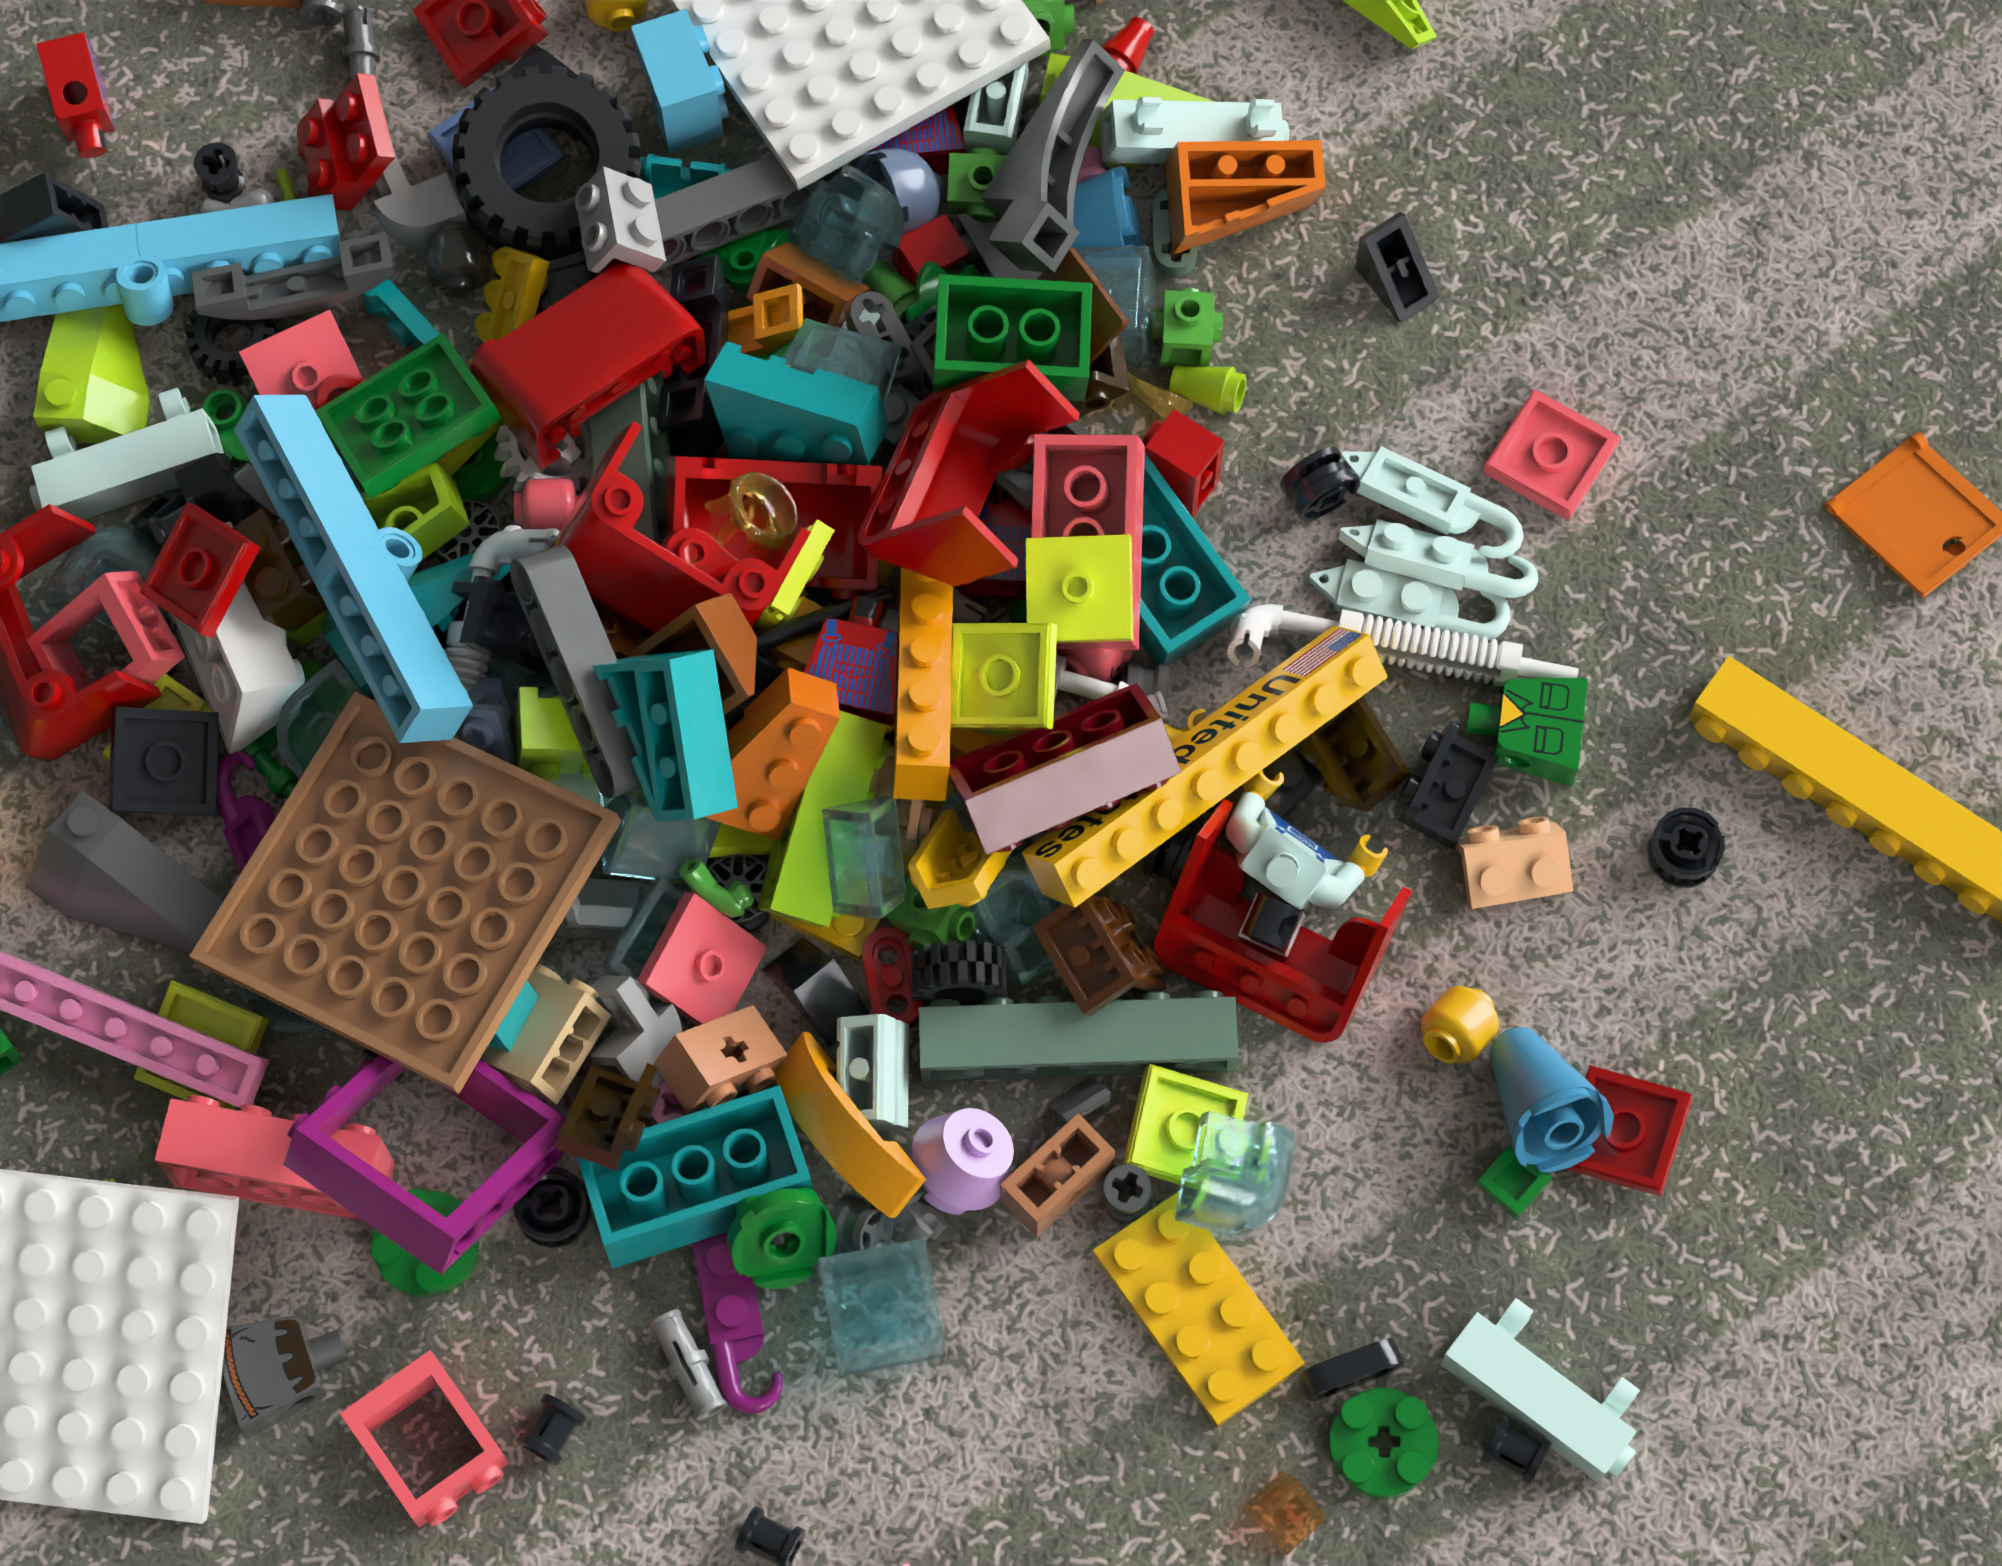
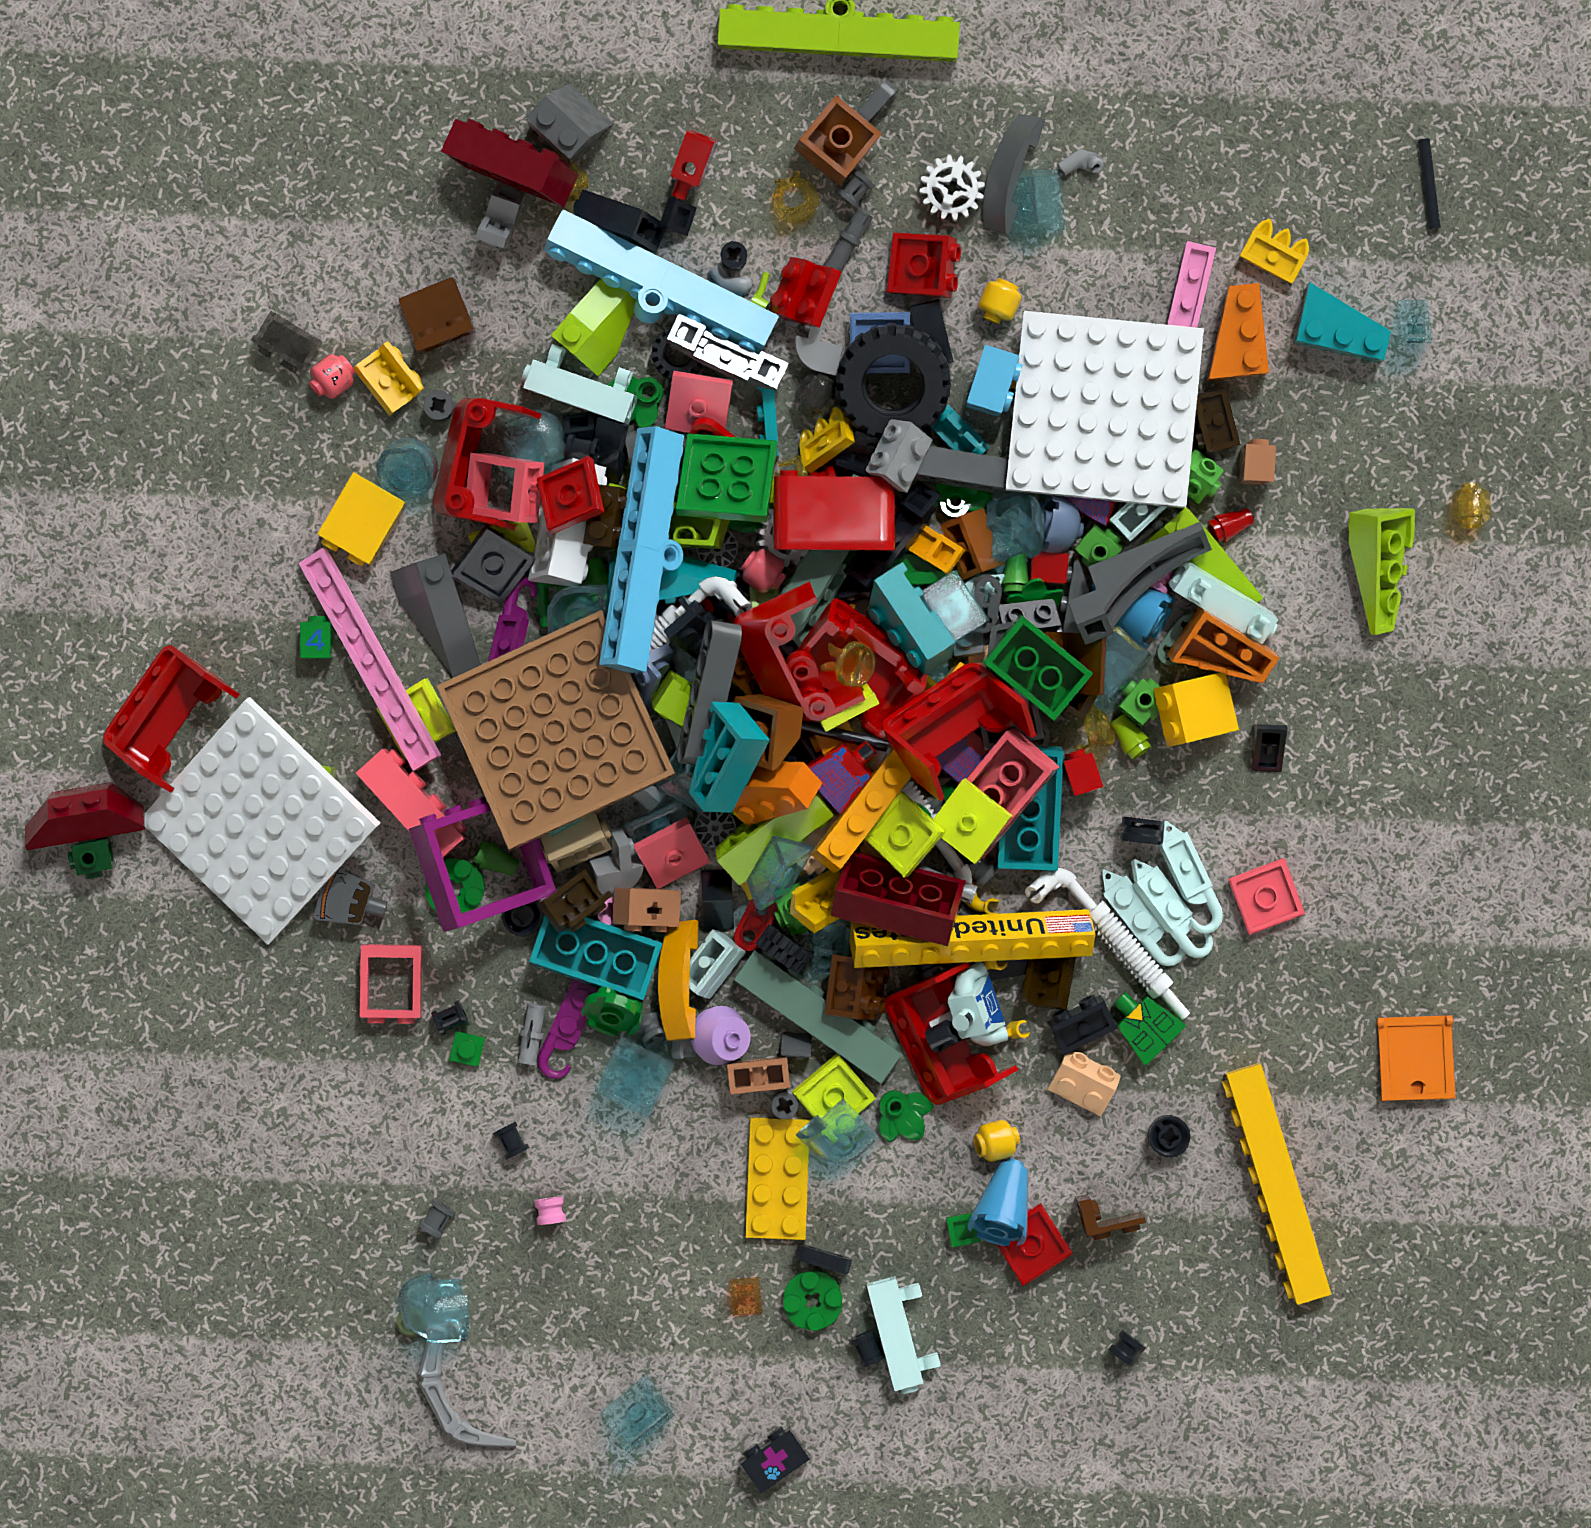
camera: 30 degrees right, 20 degrees up
(108, 176) = (678, 216): none -> black plate
(266, 69) = (797, 214): none -> clear yellow piece
(454, 1159) = (494, 858): none -> bright green cone
(609, 1458) = (467, 1048): none -> green plate
(701, 882) = (698, 823): bright green arm -> none
(1265, 280) = (1196, 709): none -> yellow brick
(1311, 1090) = (906, 1117): none -> green plate
(1675, 1029) = (1090, 1213): none -> reddish brown bracket
(1873, 1172) = (1127, 1348): none -> black wheel

